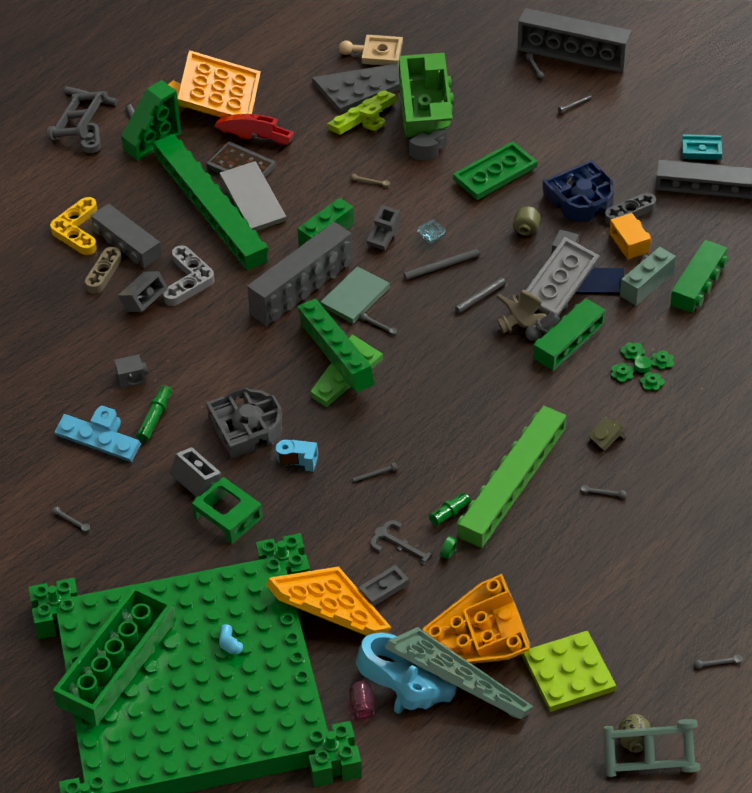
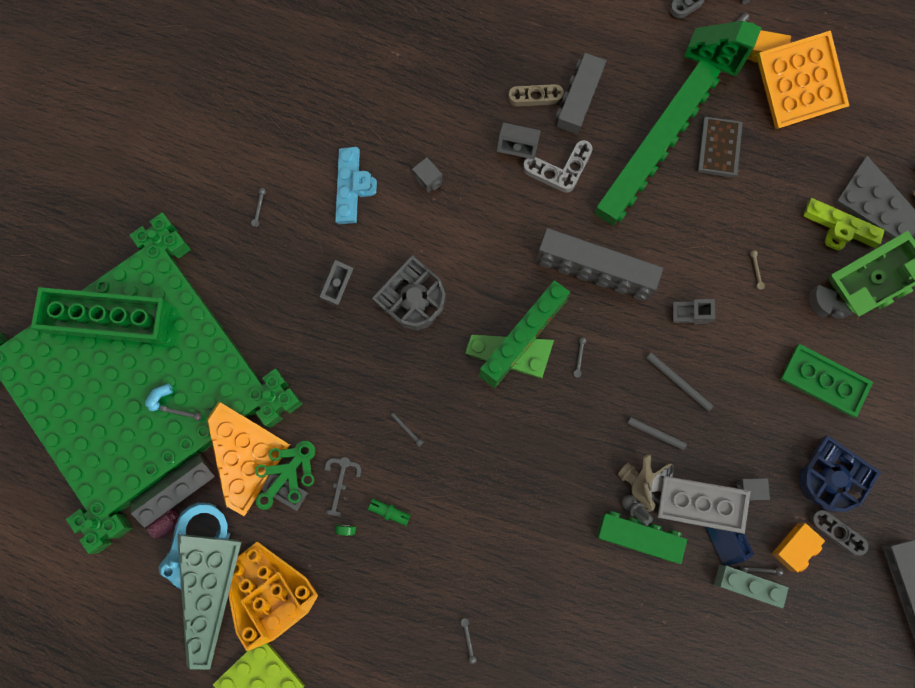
camera: 65 degrees right, 30 degrees up
(63, 226) = (575, 41): yellow beam -> none
(158, 406) = (392, 217): green pin -> none
(238, 519) = (306, 341): green window -> none
(249, 124) = (771, 135): red slope -> none
(253, 196) = (681, 176): light grey tile -> none
(268, 616) = (197, 416): none -> dark grey hinge
(297, 453) = (397, 354): medium azure leg -> none
(331, 674) = (171, 489): none -> dark grey brick
(338, 212) = (674, 258): green brick -> none
(355, 295) = (605, 321): sand green tile -> none
(356, 556) = (287, 471): none -> green plant
(431, 231) = (714, 355): clear light blue plate -> none
(511, 477) = (449, 554): bright green brick -> none
(526, 221) = (769, 439): olive head -> none
(606, 432) = (535, 620): olive bracket -> none
(642, 364) = (636, 620): green plant -> none
(698, 276) = (776, 637): green brick -> none

